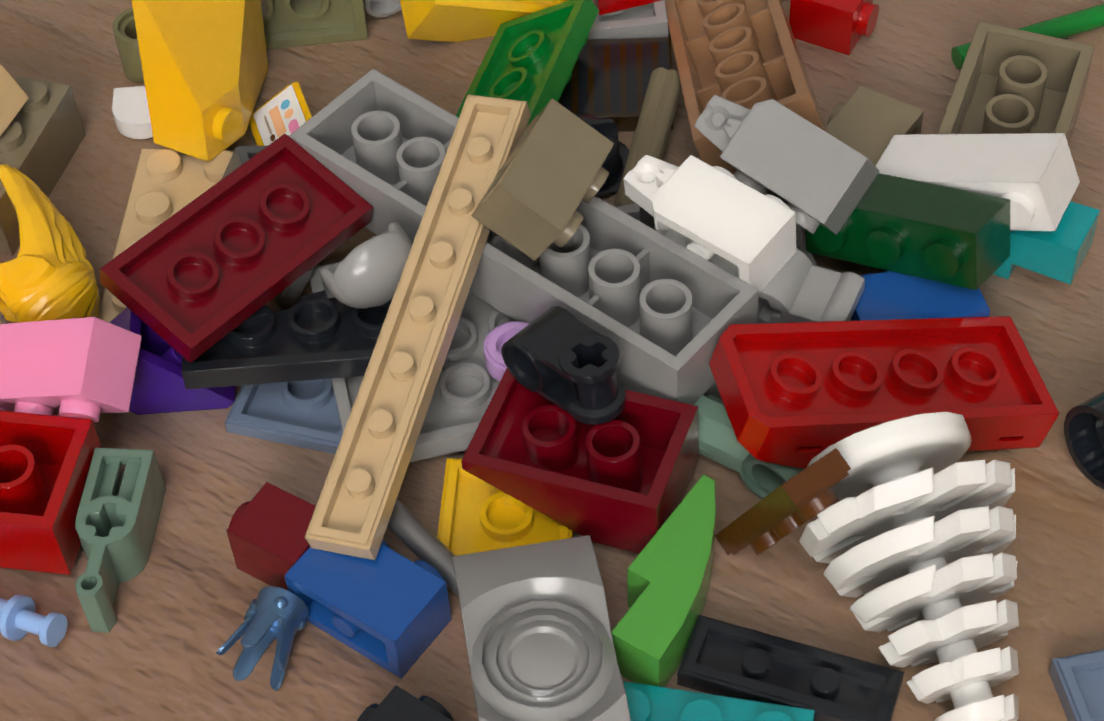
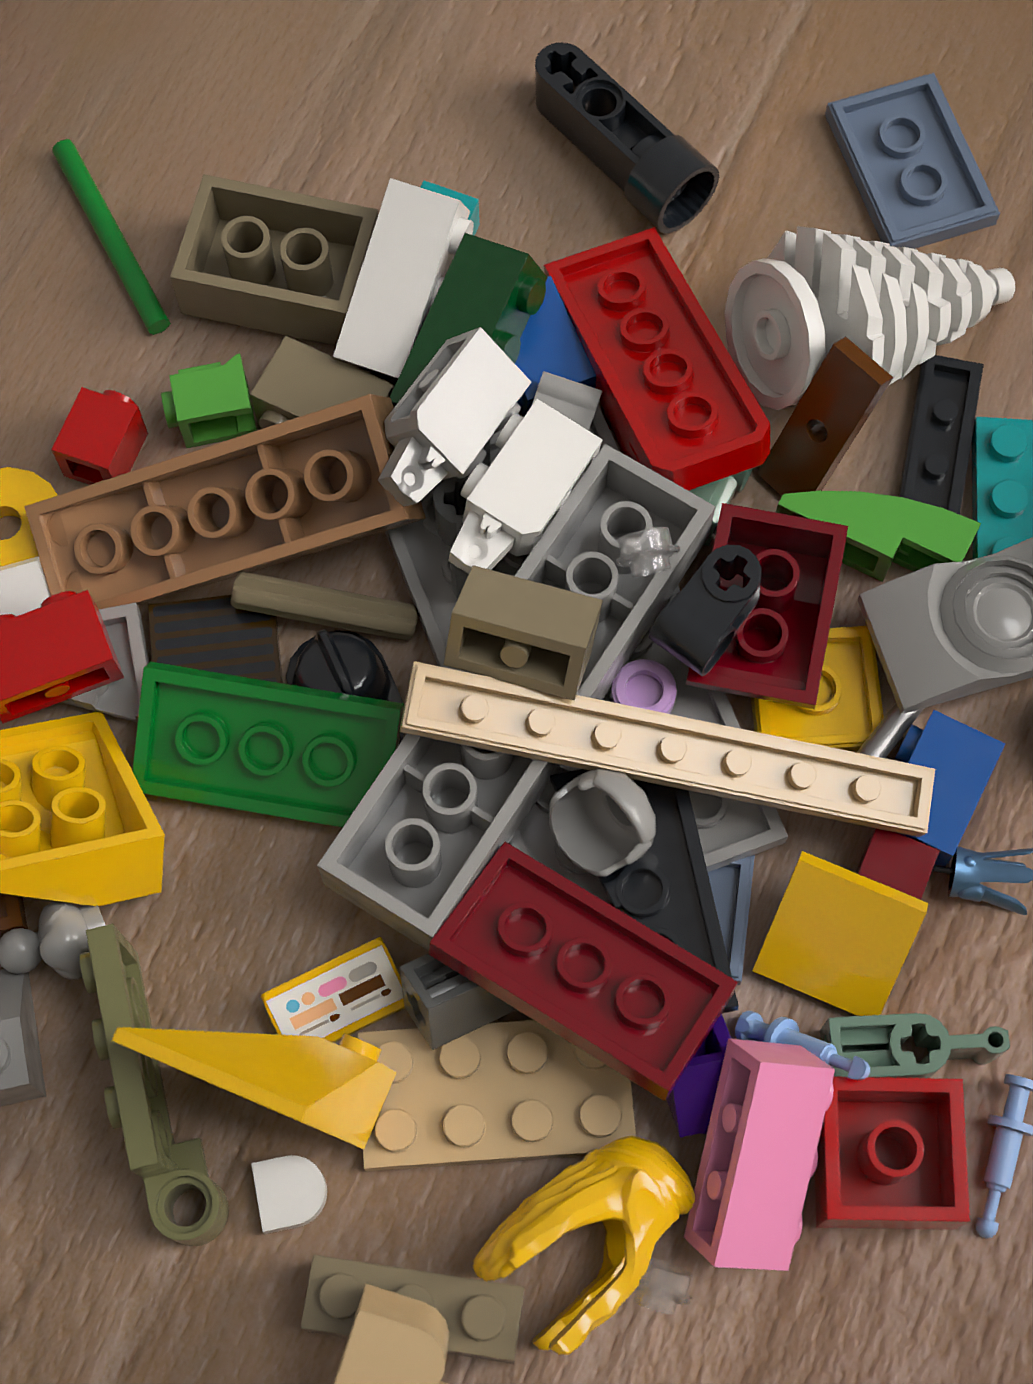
camera: 100 degrees left, 20 degrees up
(150, 429) = (786, 1031): none -> light blue piece
(234, 479) = (840, 936): none -> yellow tile
(623, 293) = (647, 551): none -> clear plate
(866, 62) = (210, 403): none -> bright green window

